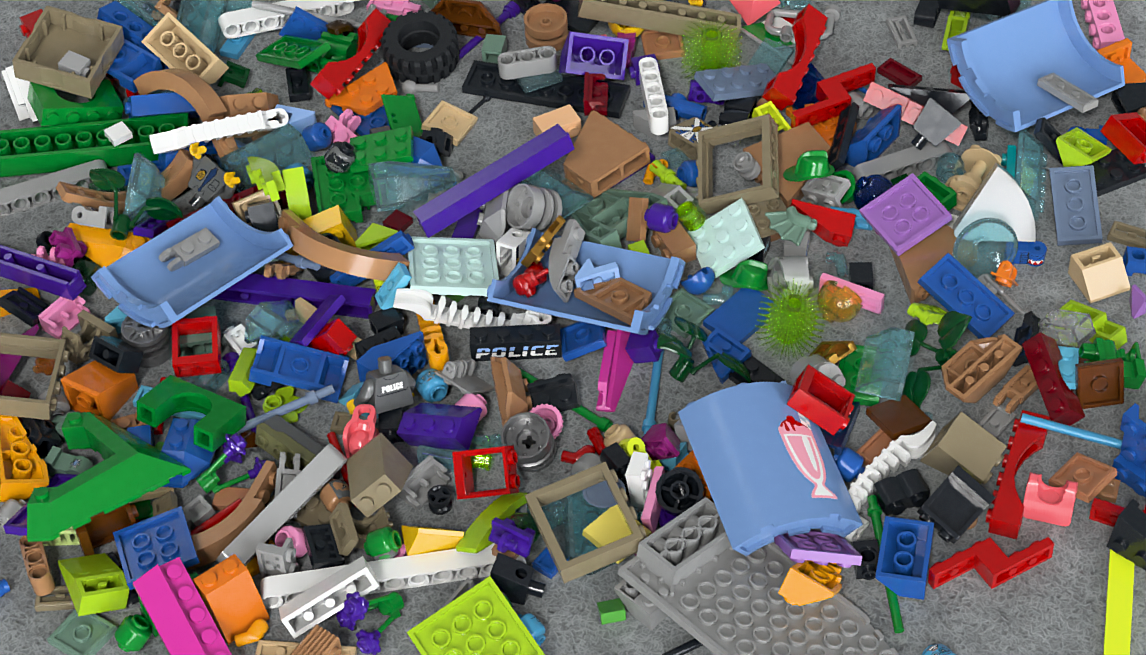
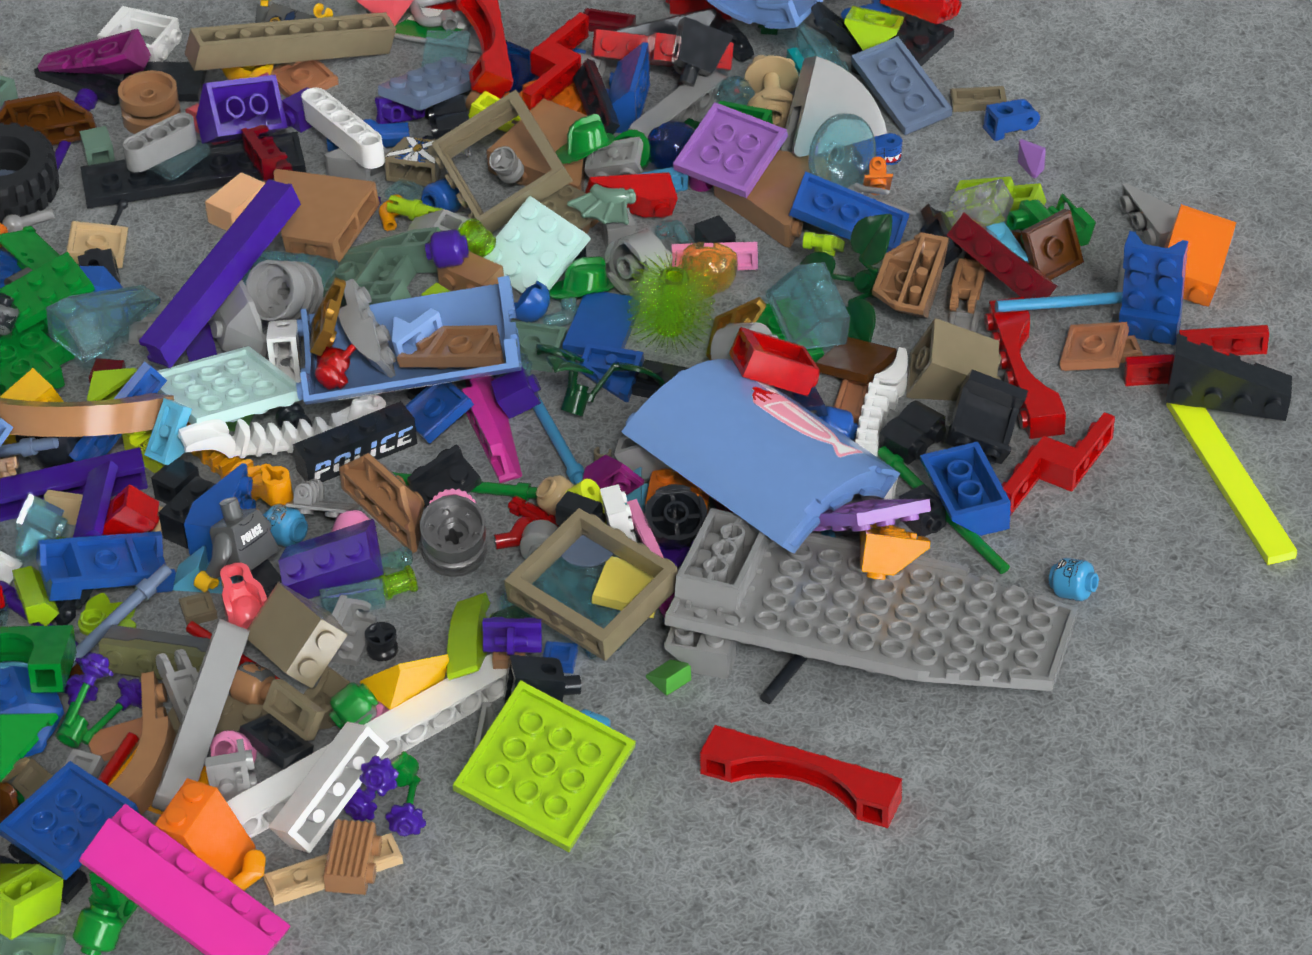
camera: 30 degrees left, 5 degrees down
(464, 473) = (397, 597): red window -> none
(636, 223) = (413, 263): medium nougat tile -> none
(710, 49) = (377, 60): clear neon green piece -> none
(1049, 503) = (1081, 382): coral piece -> none
(1099, 272) = (972, 142): tan slope -> none

